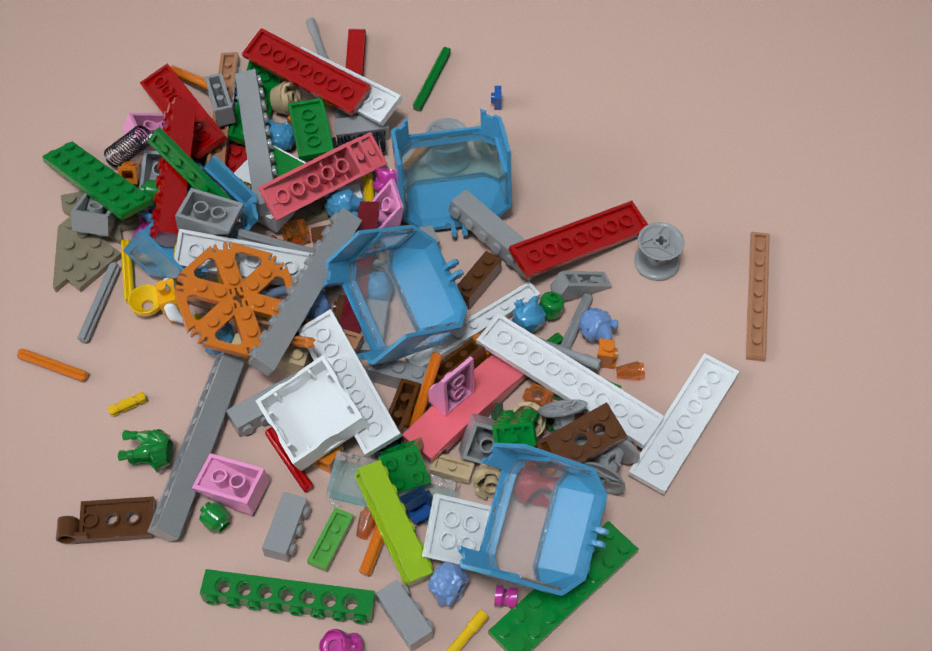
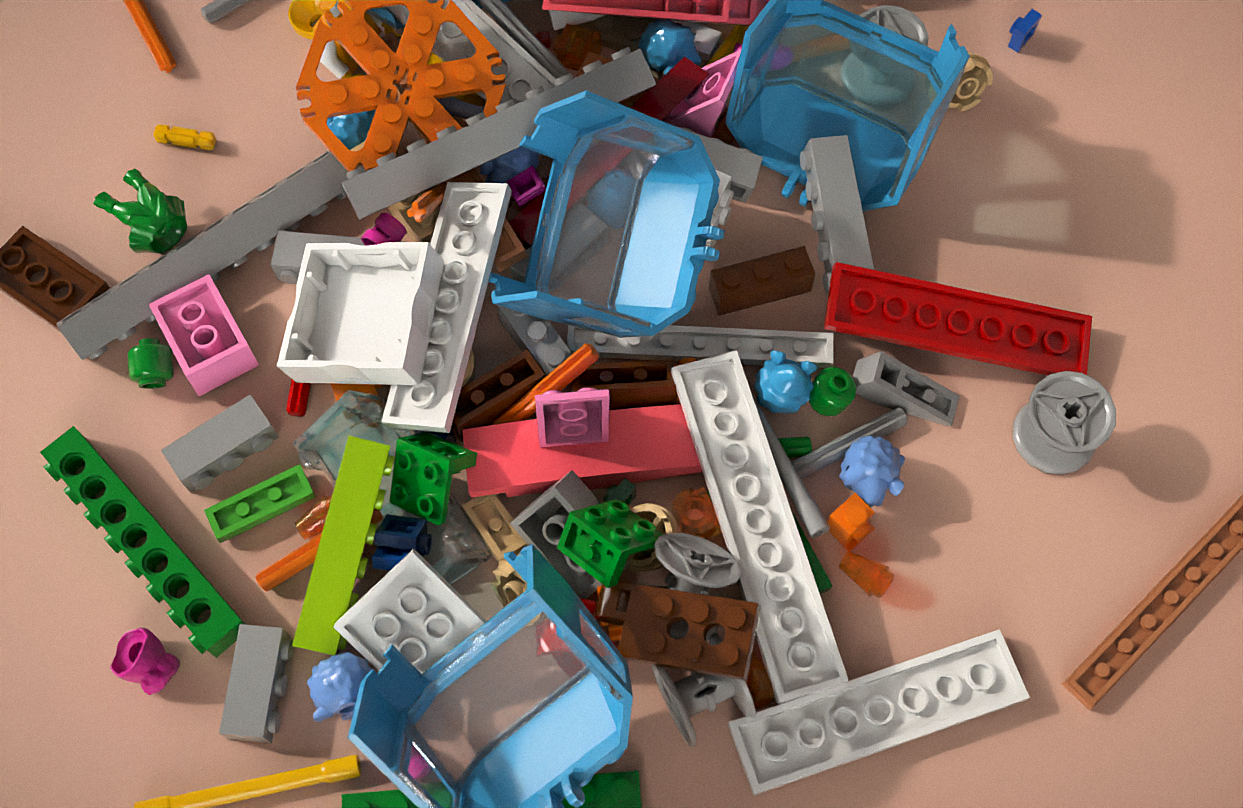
camera: 40 degrees right, 10 degrees up
(285, 371) = (386, 230): none -> dark pink wheel
(336, 305) = (526, 185): none -> magenta slope

